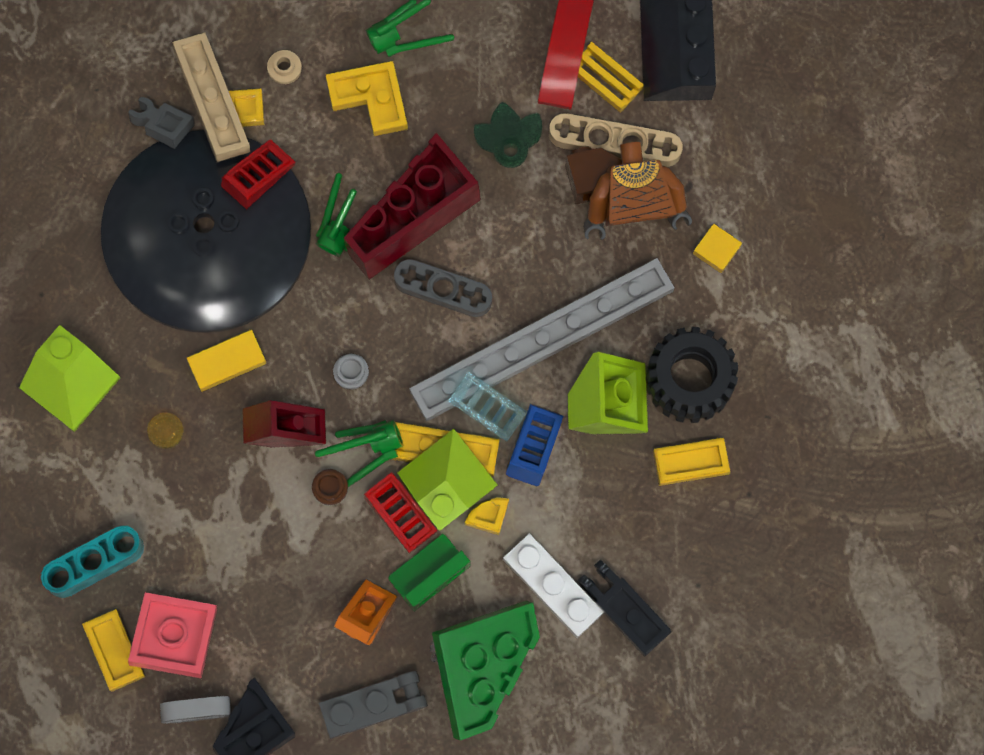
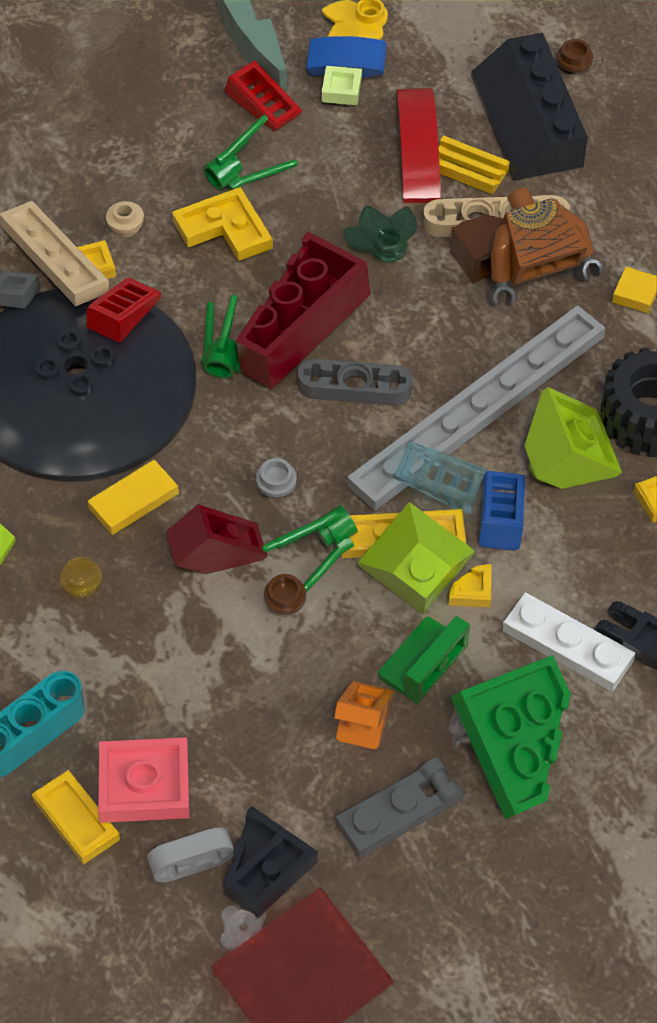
camera: 10 degrees left, 20 degrees down
(381, 488) = (366, 582): red slope -> none

